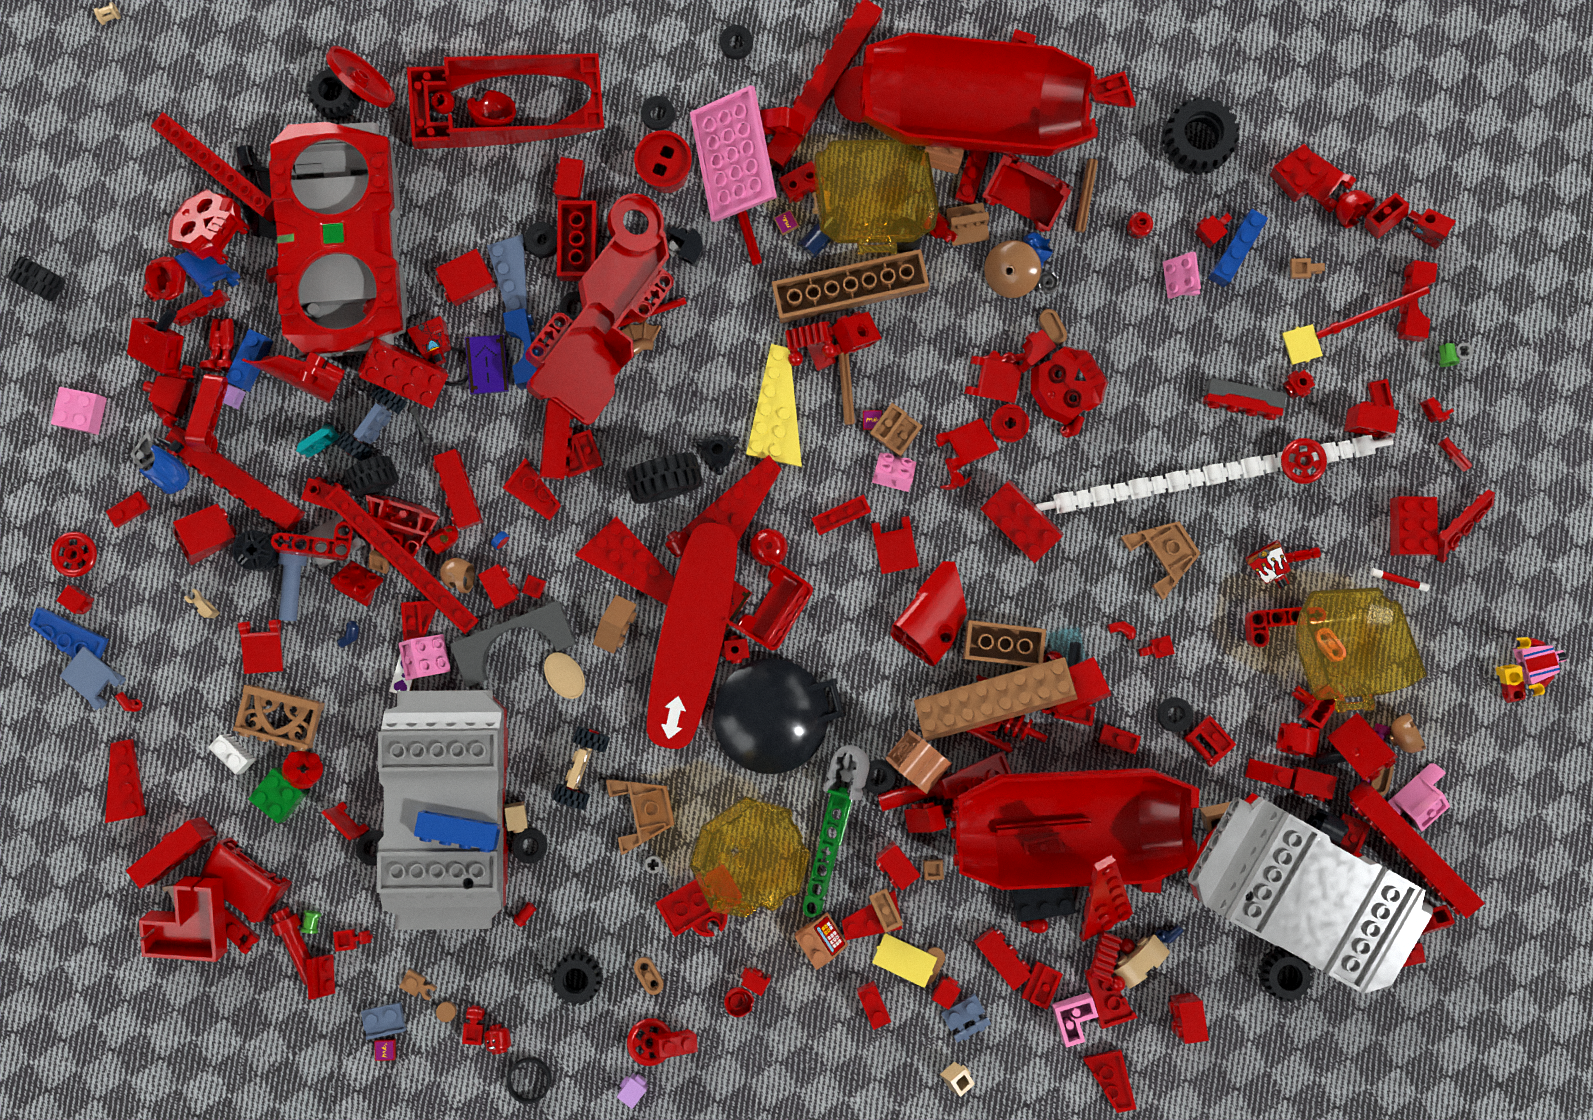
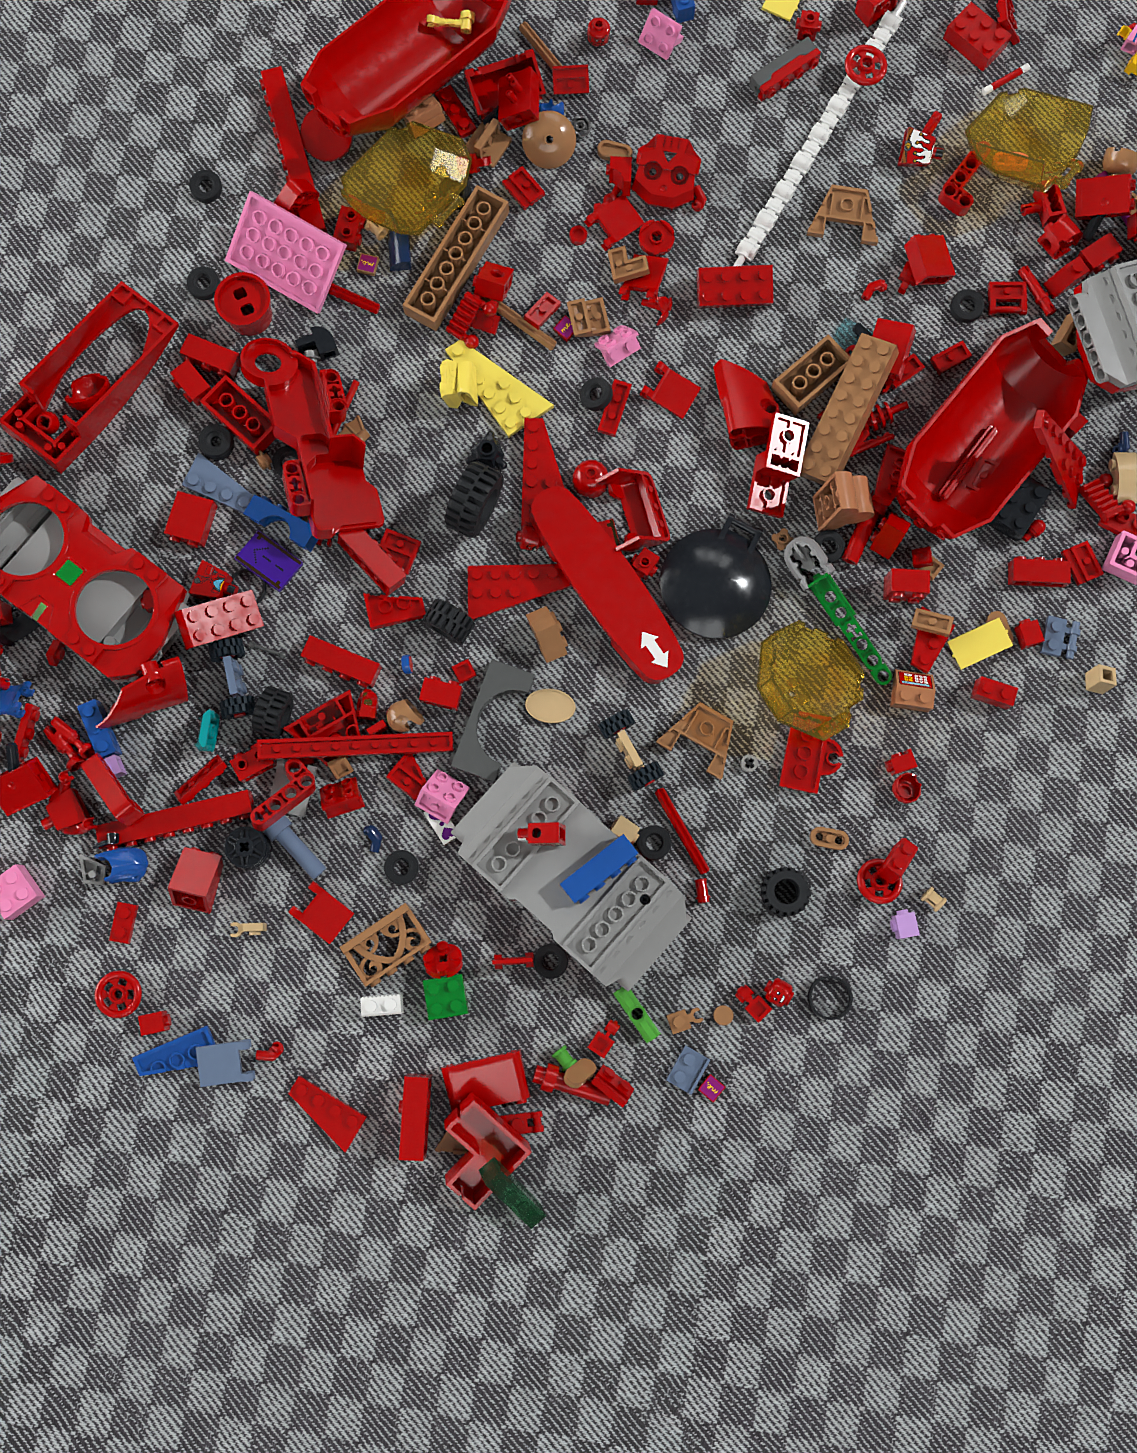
camera: 50 degrees left, 5 degrees down
(175, 973) = (512, 1192): none -> clear green brick
(279, 468) = (200, 780): none -> red plate
(308, 944) = (579, 1073): none -> medium nougat tile
(333, 674) = (413, 867): none -> black tyre
(387, 958) = (644, 1023): none -> bright green piece
(431, 563) = (377, 728): none -> red tile
(445, 767) = (551, 834): none -> red torso
(556, 543) = (448, 621): none -> black tyre
(557, 859) = (682, 831): none -> red axle
(559, 289) = (263, 460): none -> medium nougat plate
(603, 173) = (210, 356): none -> red brick
(671, 1095) = (933, 899): none -> tan bush
(749, 380) = (458, 383): none -> light yellow piece
(838, 502) = (589, 386): none -> black tyre
(857, 734) = (777, 539): none -> medium nougat plate
(868, 389) = (542, 310): none -> red plate
(903, 683) = (777, 465): none -> bracket
(933, 857) = (922, 557): none -> red tile
(956, 284) = (523, 188): none -> red plate
(957, 361) = (578, 235): none -> red tile
(960, 422) = (625, 269): none -> medium nougat plate
(1019, 216) = (517, 100): none -> red piece
(1048, 116) = (465, 23): none -> light yellow brick
(1079, 240) = (570, 79): none -> red plate
(1184, 652) = (929, 259): none -> red brick
(1236, 763) = (1041, 298): none -> red pin

